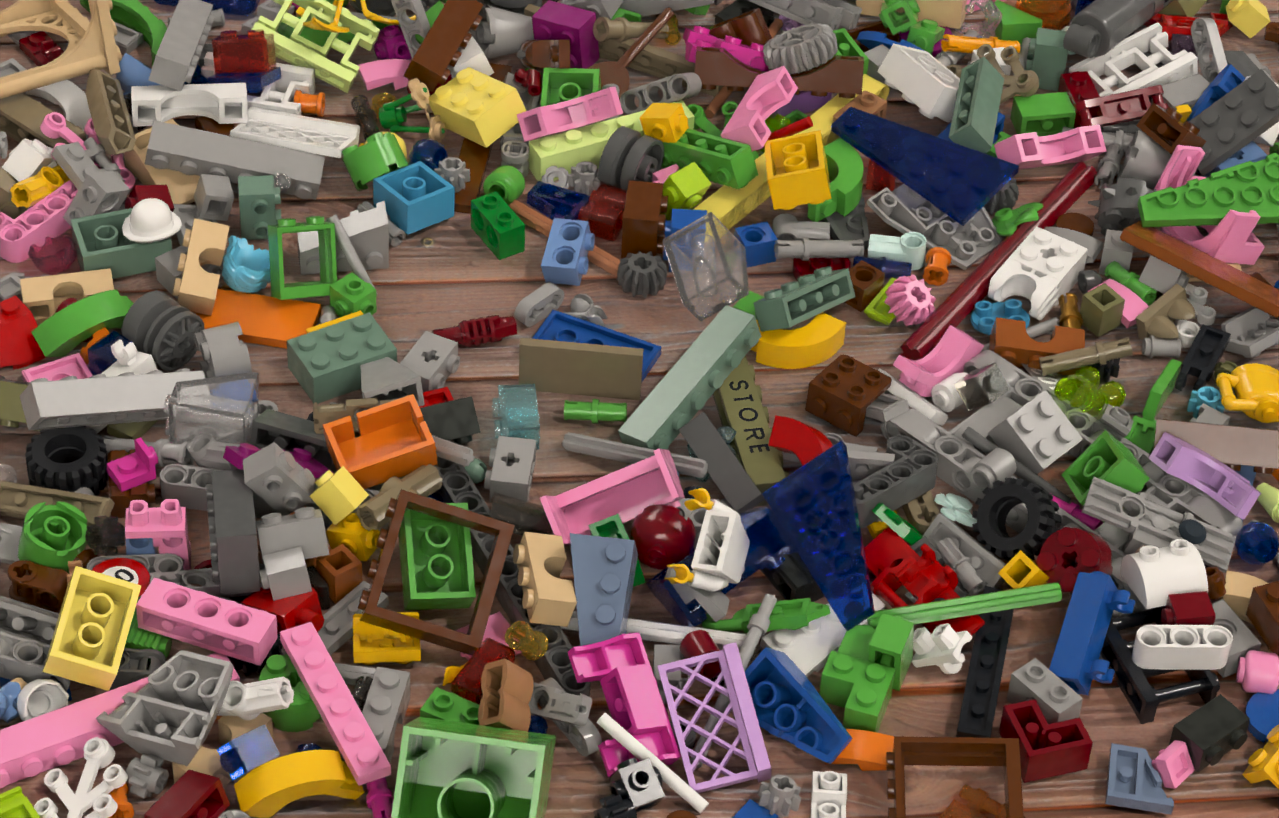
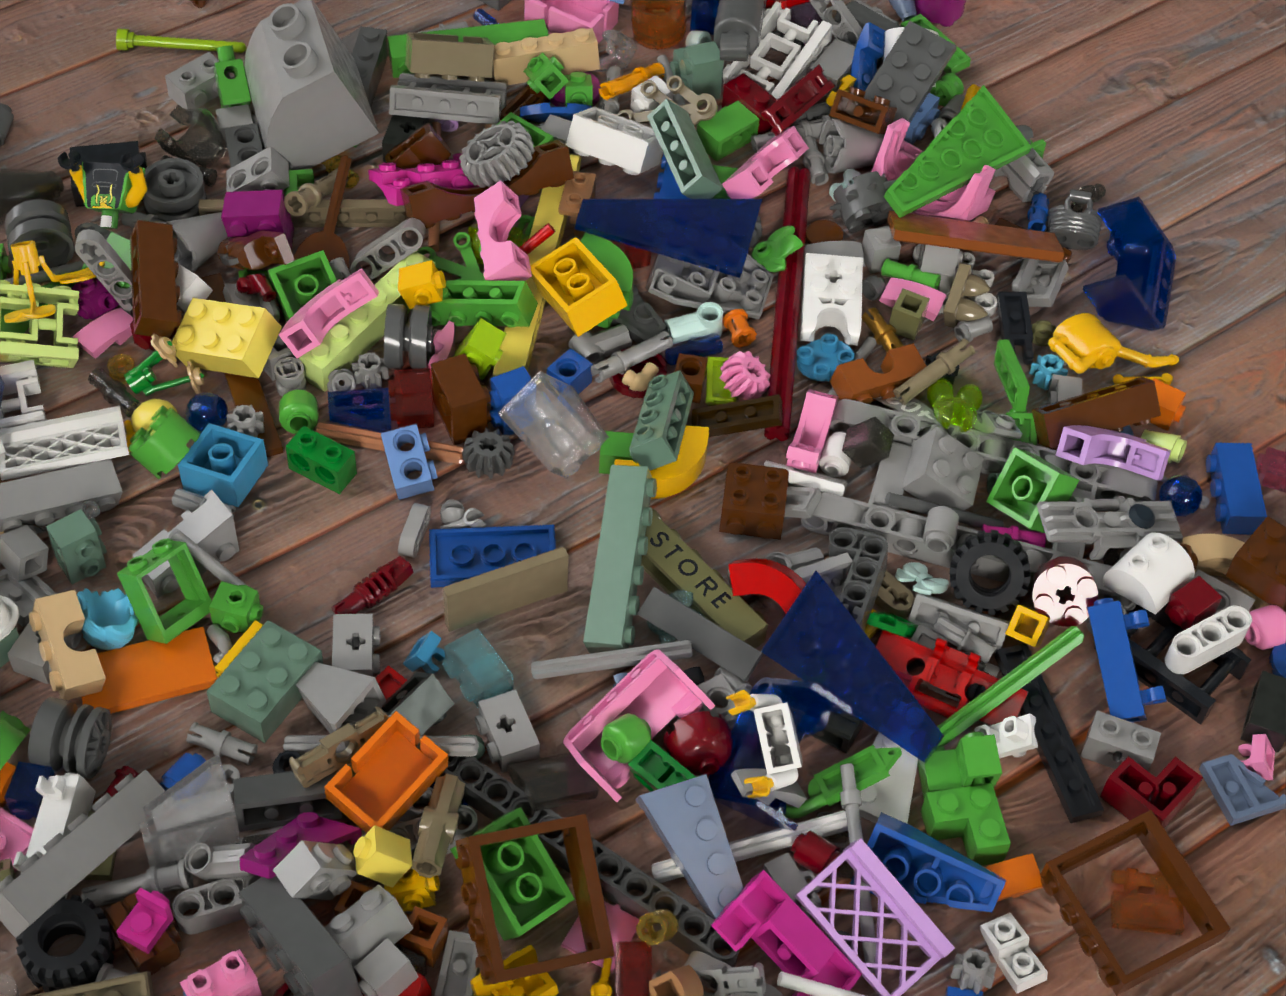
camera: 30 degrees left, 10 degrees up
(222, 351) = (151, 738): light grey brick -> none
(279, 388) = (222, 743): none -> light grey pin
(311, 103) = (48, 397): orange bush -> none
(484, 389) = (422, 654): none -> dark azure tile
(544, 593) = (645, 869): tan arch -> none
(595, 411) = (540, 625): bright green pin -> none
(598, 504) = (625, 738): none -> bright green head
(807, 265) = (640, 380): none -> tan arm
(882, 326) = (739, 416): none -> dark brown plate
(1016, 23) = (649, 46): bright green slope -> none

